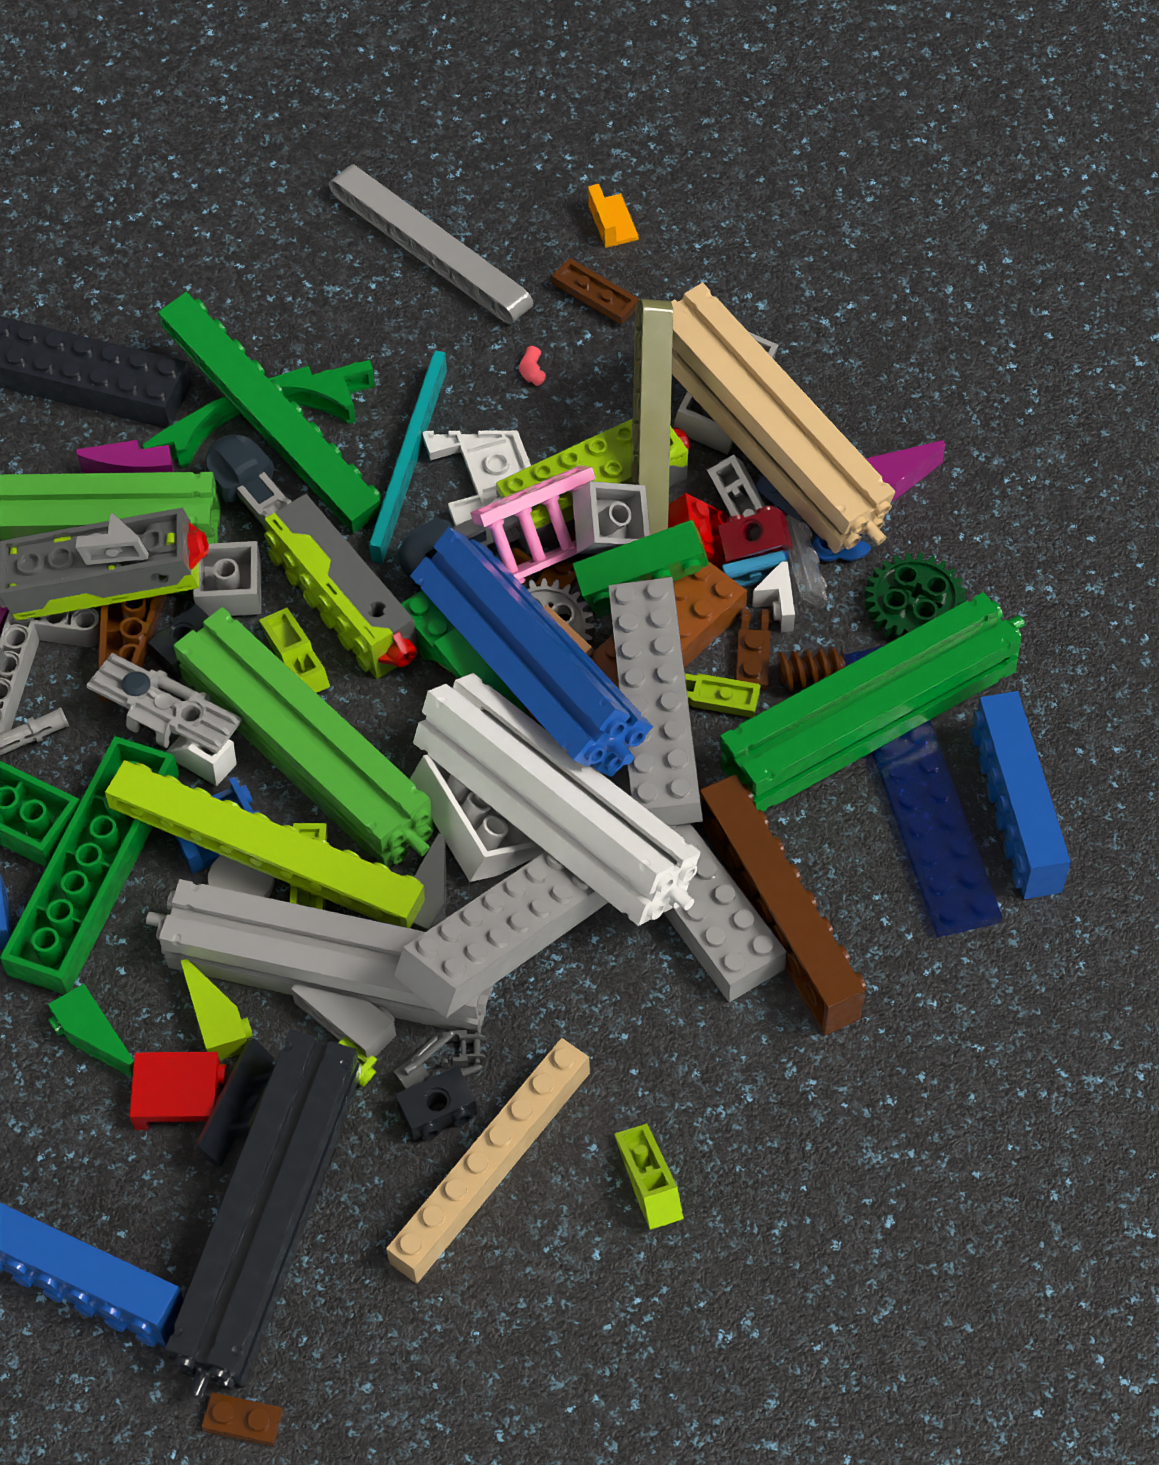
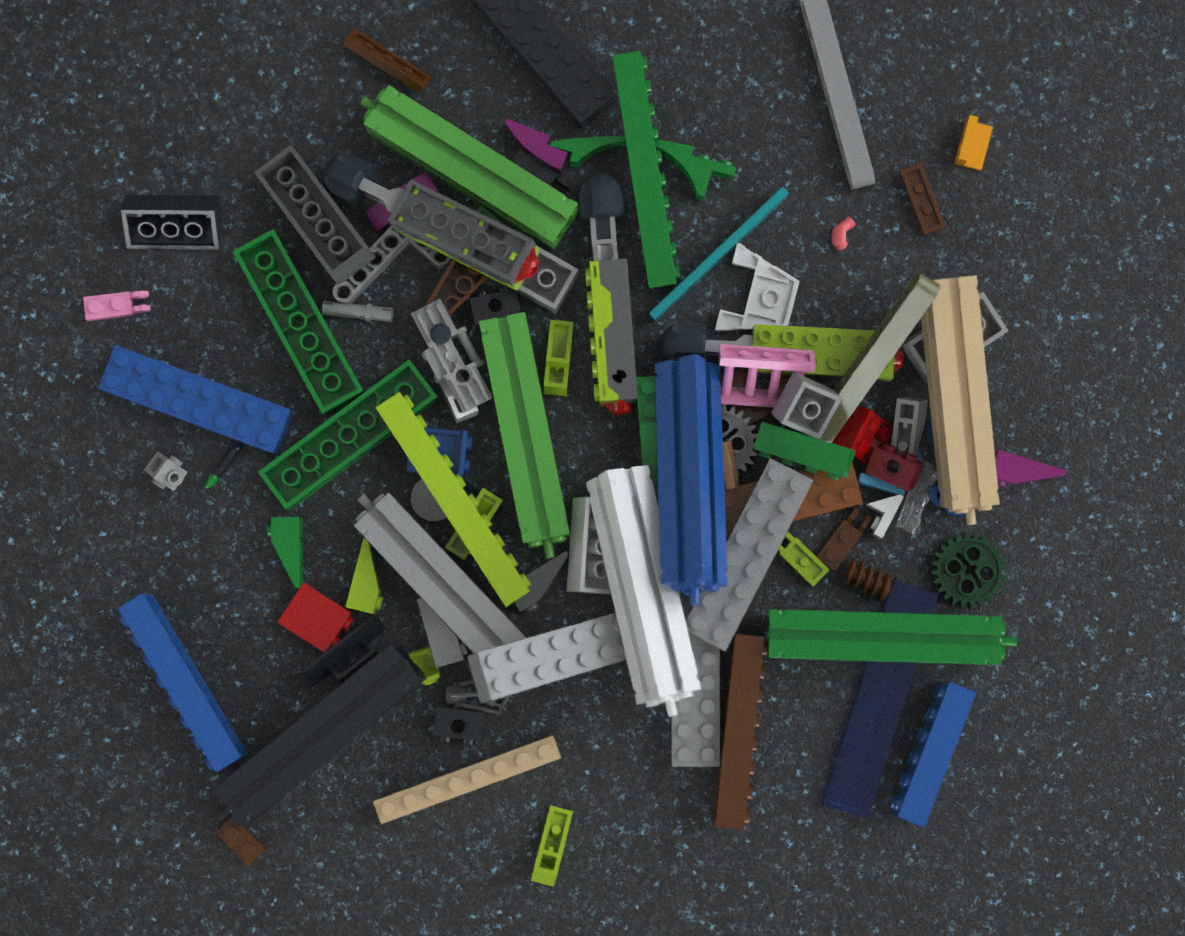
camera: 30 degrees right, 25 degrees up
(116, 546) = (476, 242): light grey slope -> none

